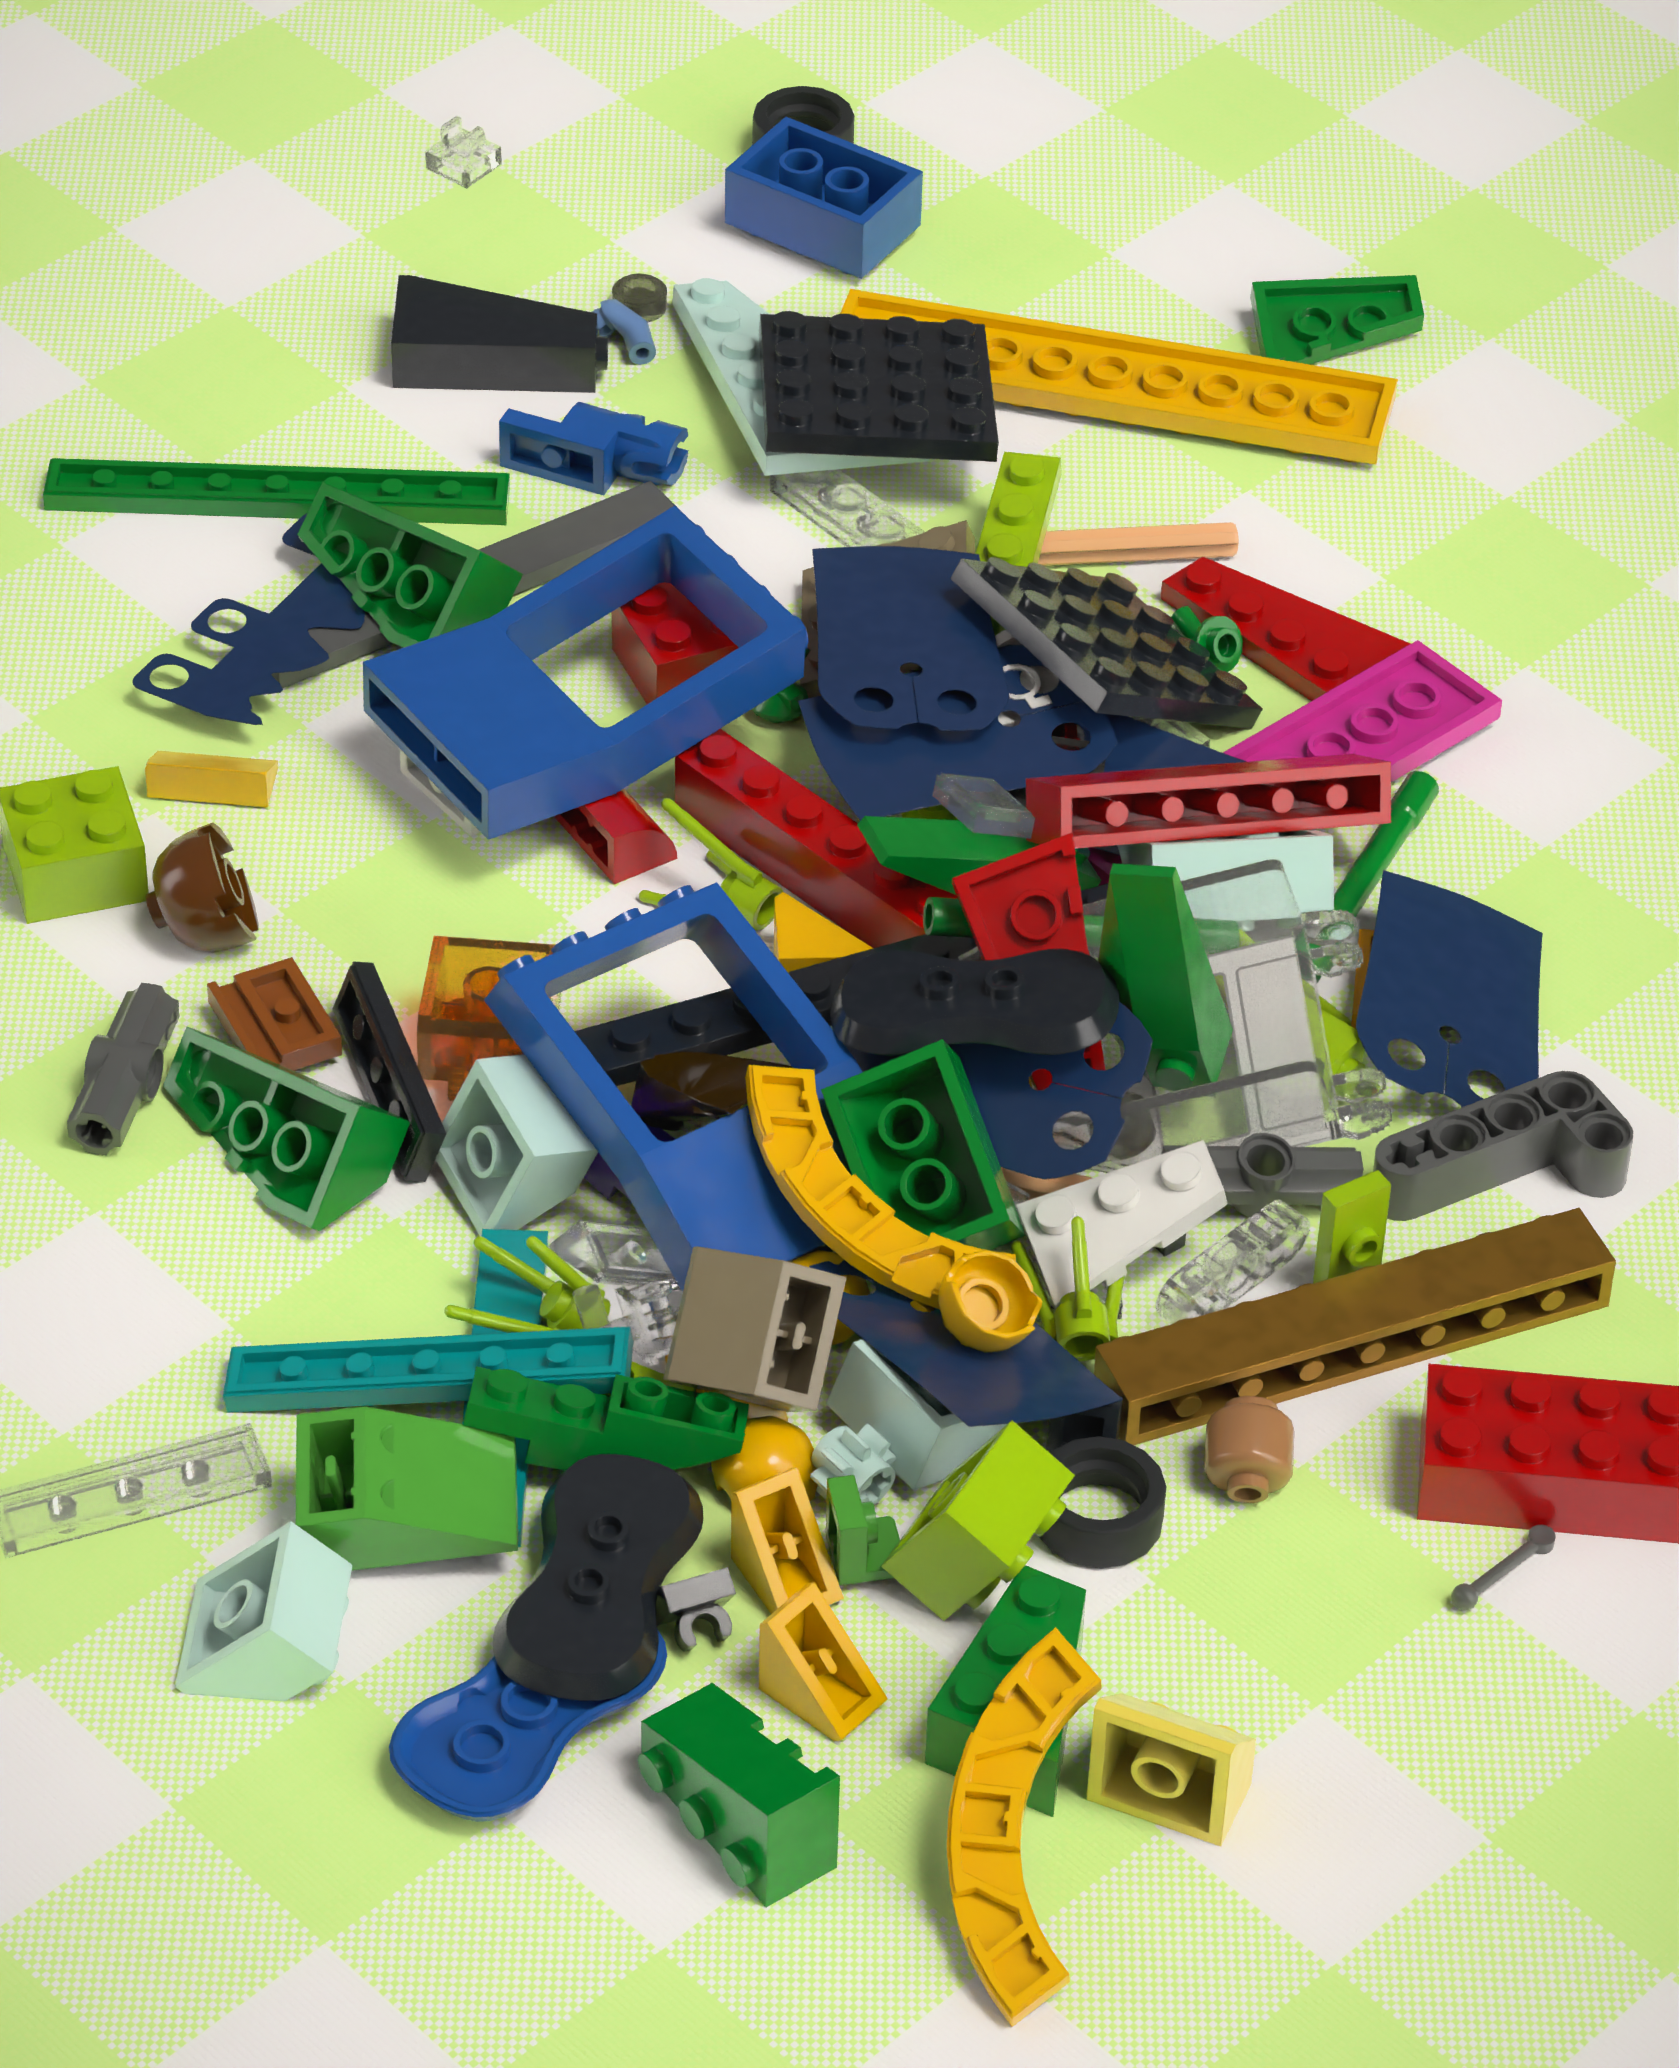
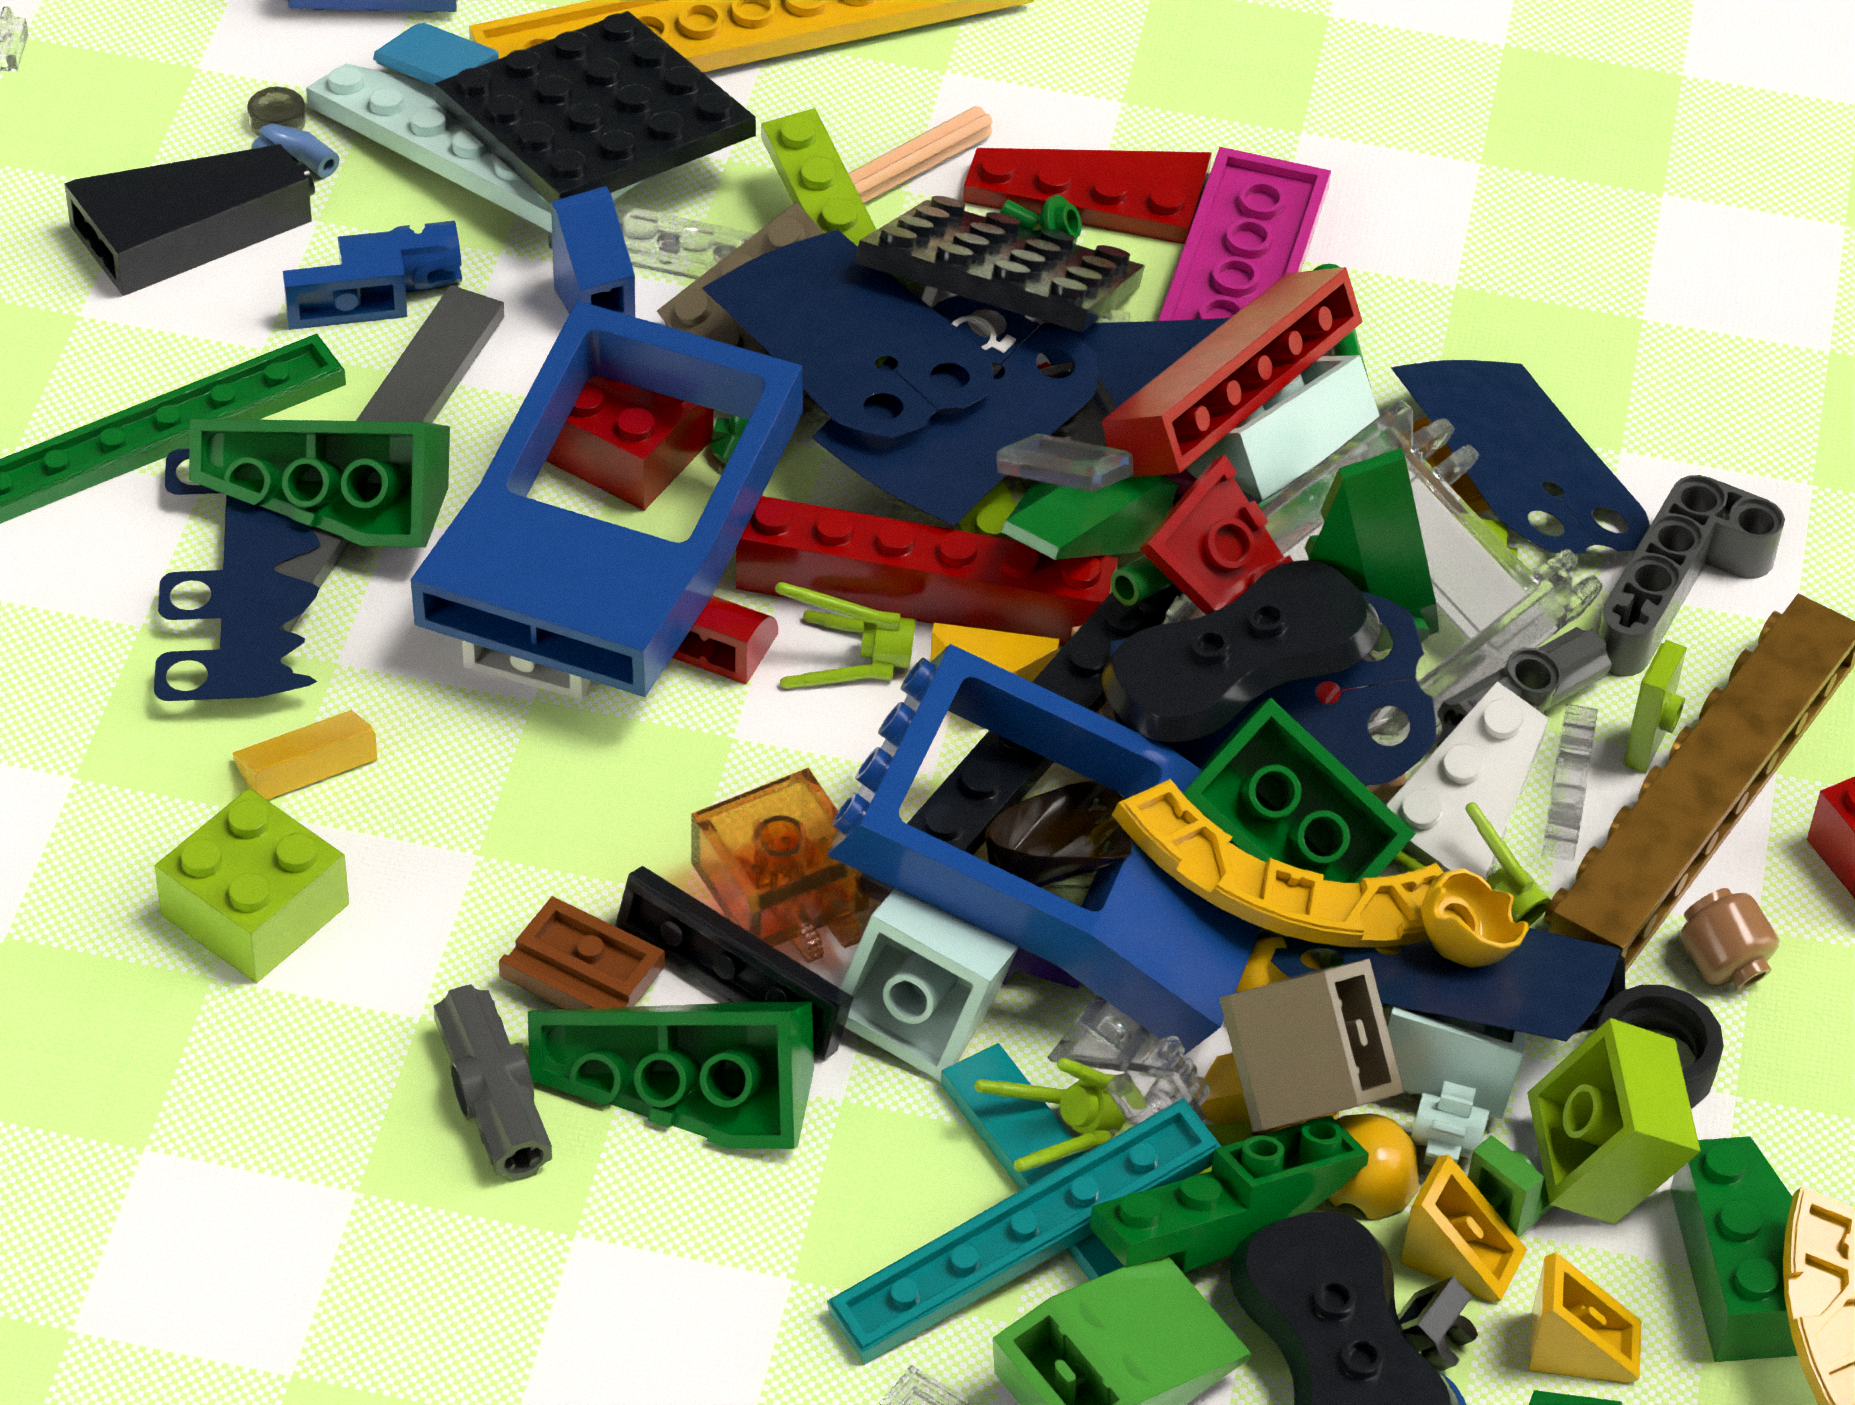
camera: 35 degrees left, 5 degrees up
(202, 893) = (419, 875): reddish brown cylinder -> none
(769, 502) = (591, 253): none -> blue slope
(794, 292) = (432, 53): none -> dark azure slope

